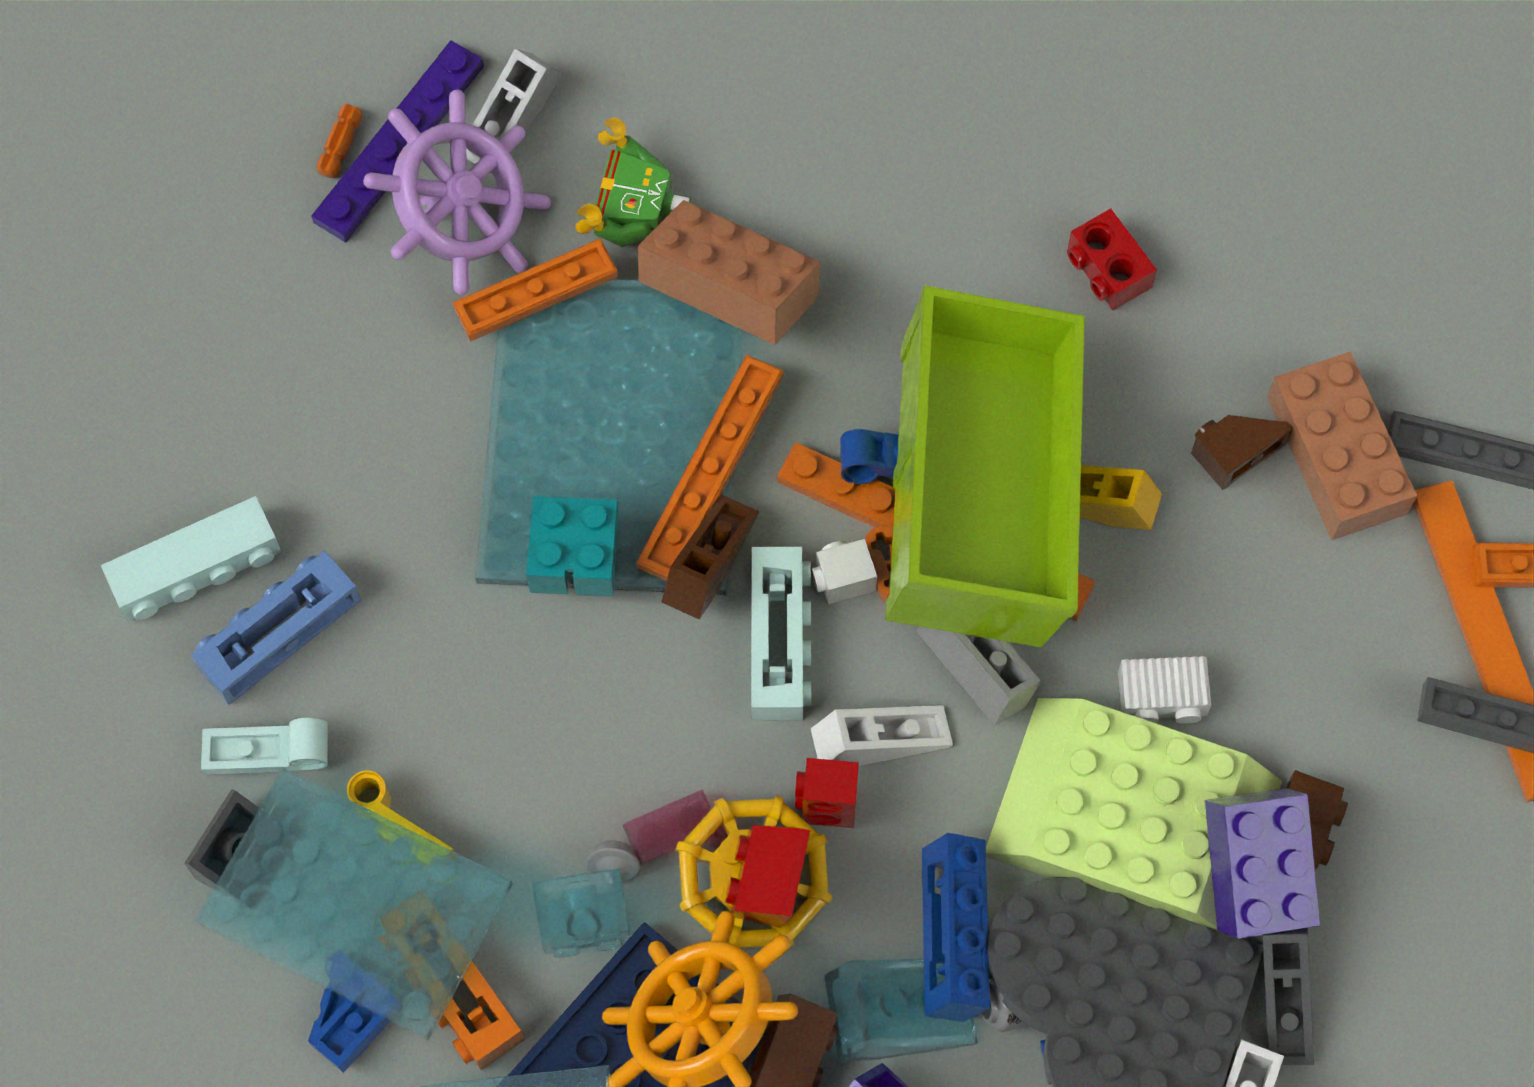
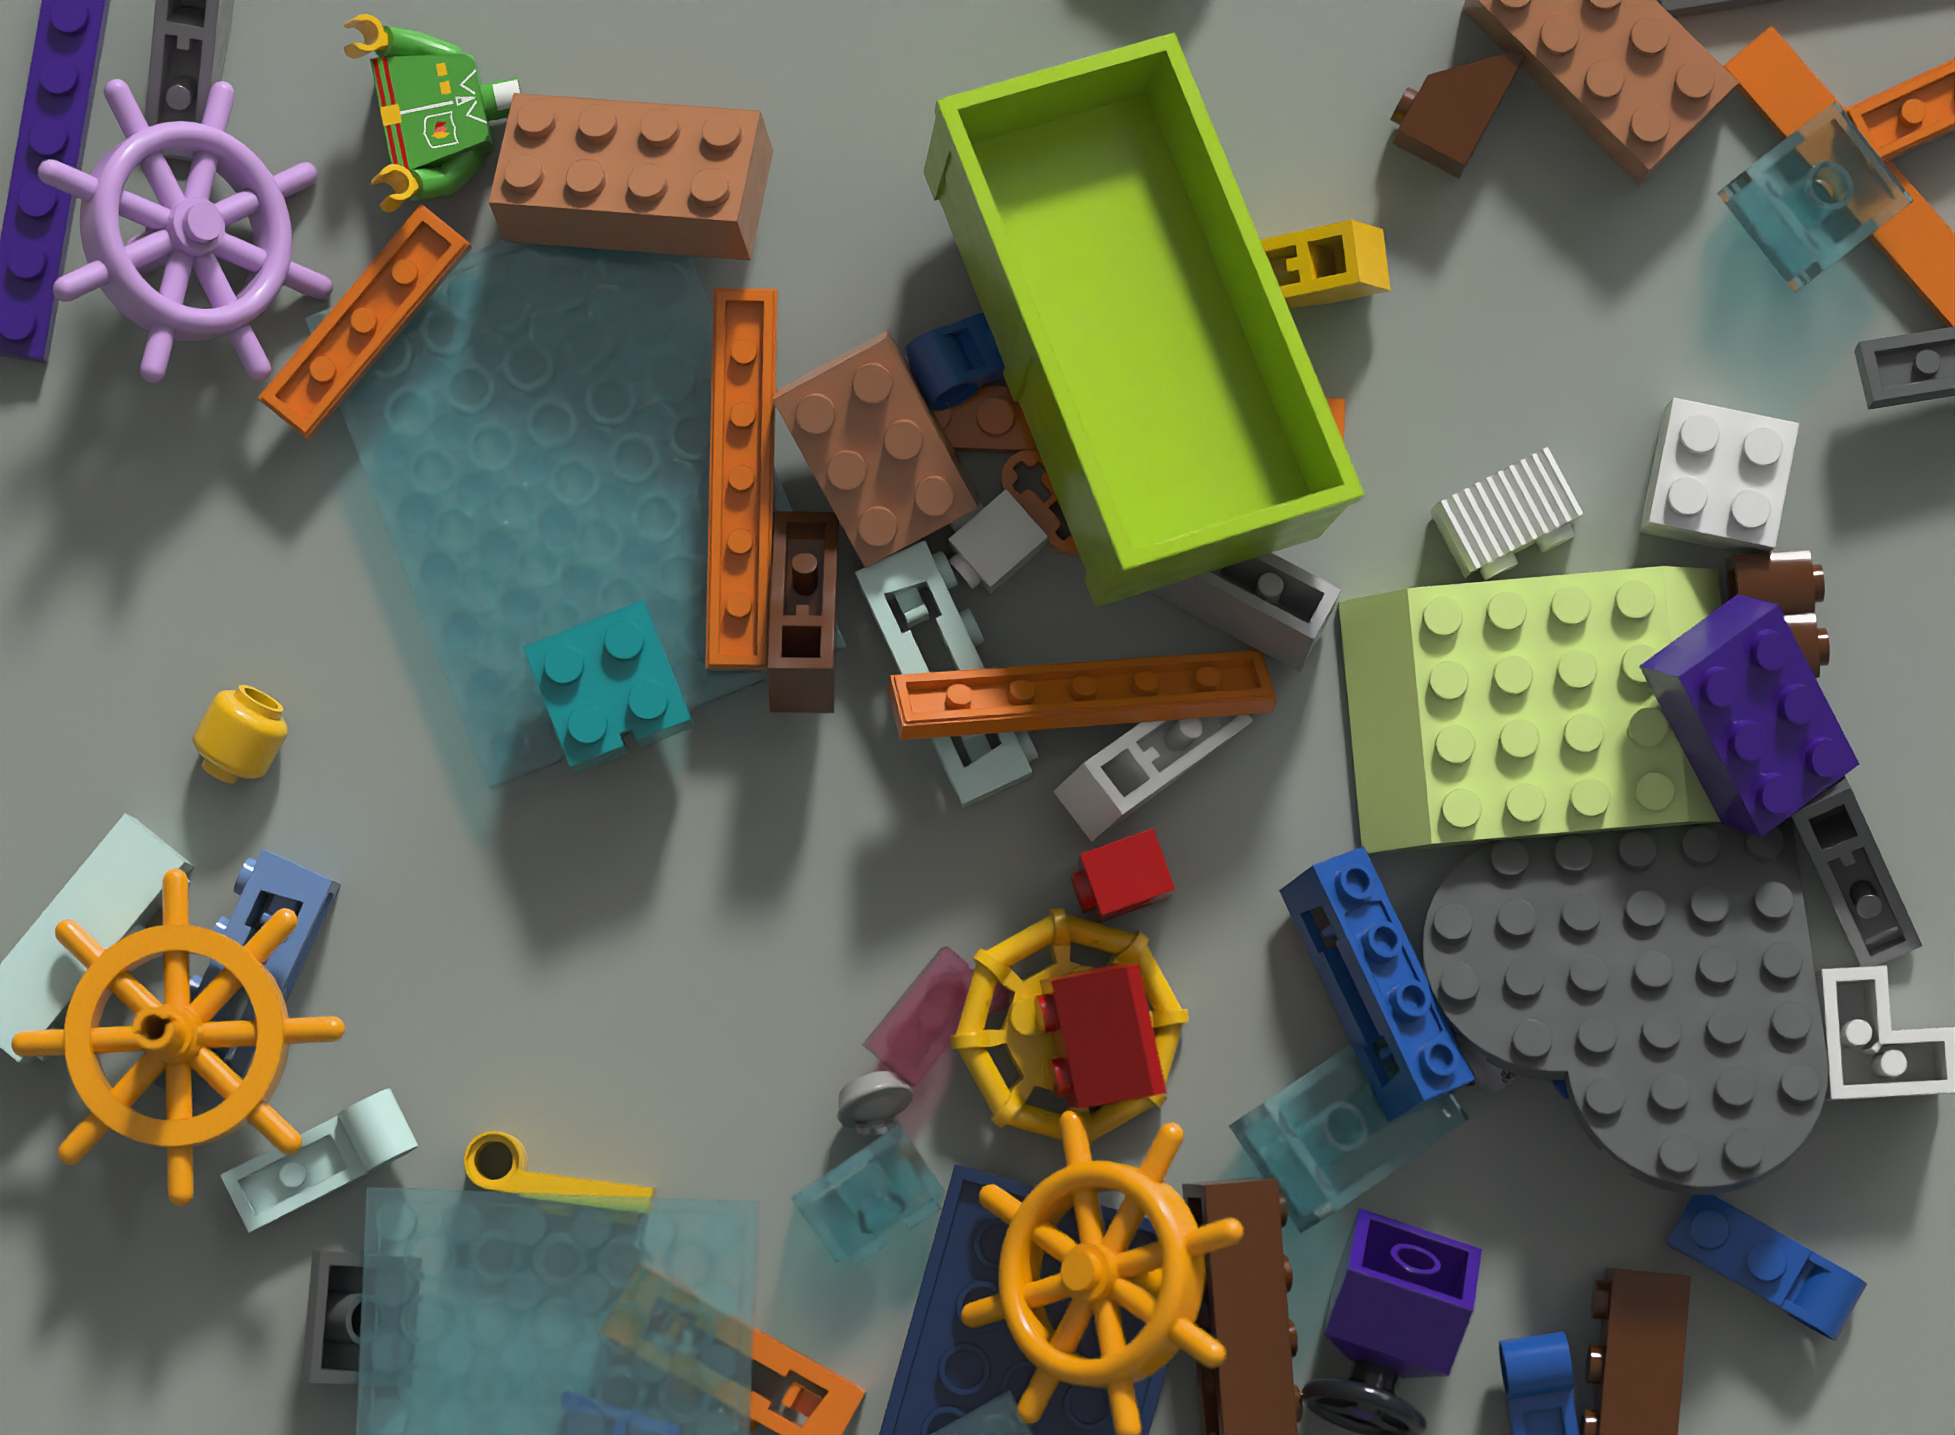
camera: 25 degrees left, 15 degrees up
(217, 628) = (177, 1036): none -> light orange piece
(346, 485) = (240, 734): none -> yellow head
(798, 481) = (876, 449): none -> nougat brick
(854, 674) = (1080, 694): none -> orange tile
(1305, 722) = (1719, 477): none -> white brick
(1436, 584) = (1815, 196): none -> clear light blue slope

